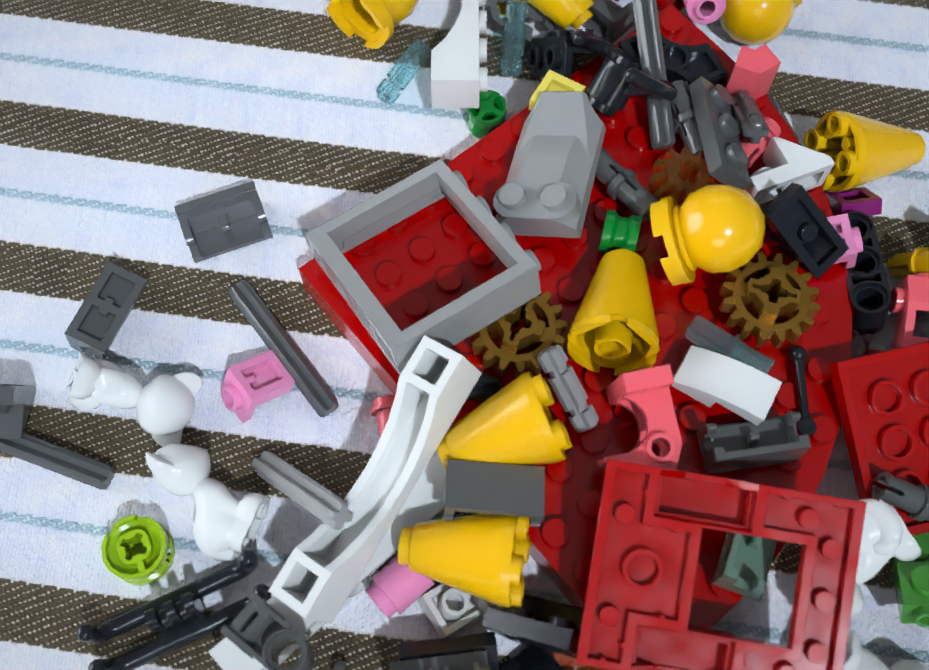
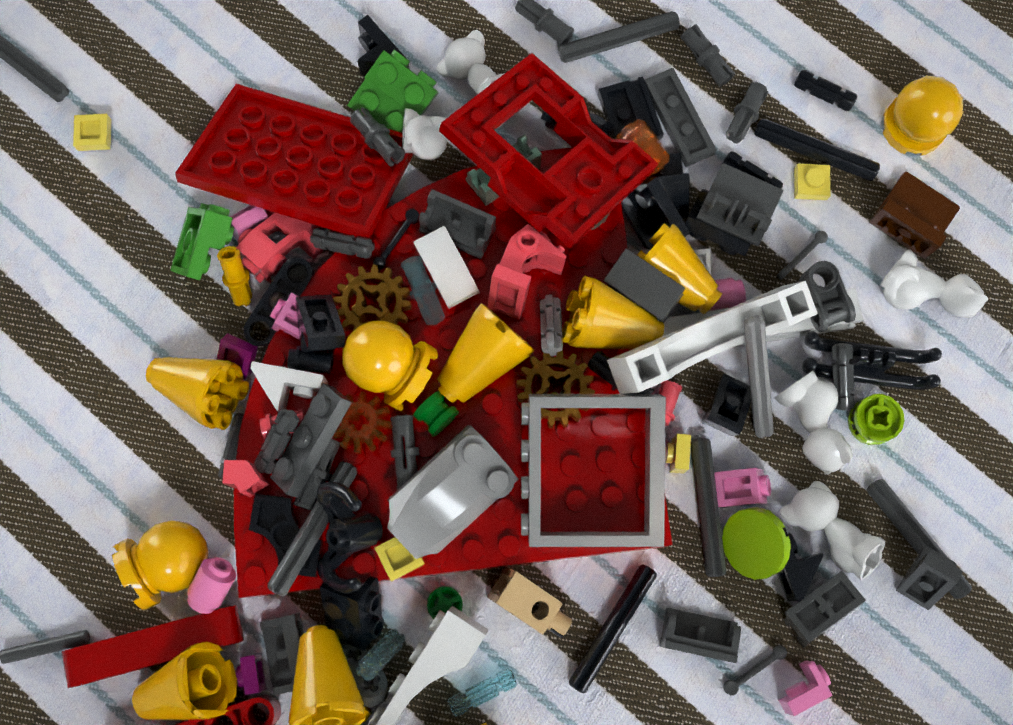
camera: 150 degrees left, 10 degrees up
(89, 227) = (803, 696): none -> bright pink bracket
(135, 256) = (732, 687): none -> dark grey hinge
(157, 335) = (798, 573): none -> black slope
(201, 573) = (843, 375): none -> dark grey axle
(211, 329) = (756, 543): none -> lime tile
(314, 180) = (612, 629): none -> black axle
(317, 448) = (729, 406): none -> black slope
(345, 375) = (678, 453): none -> light yellow plate
(407, 144) = (519, 595): none -> tan torso
(834, 351) = (342, 243): none -> dark grey axle

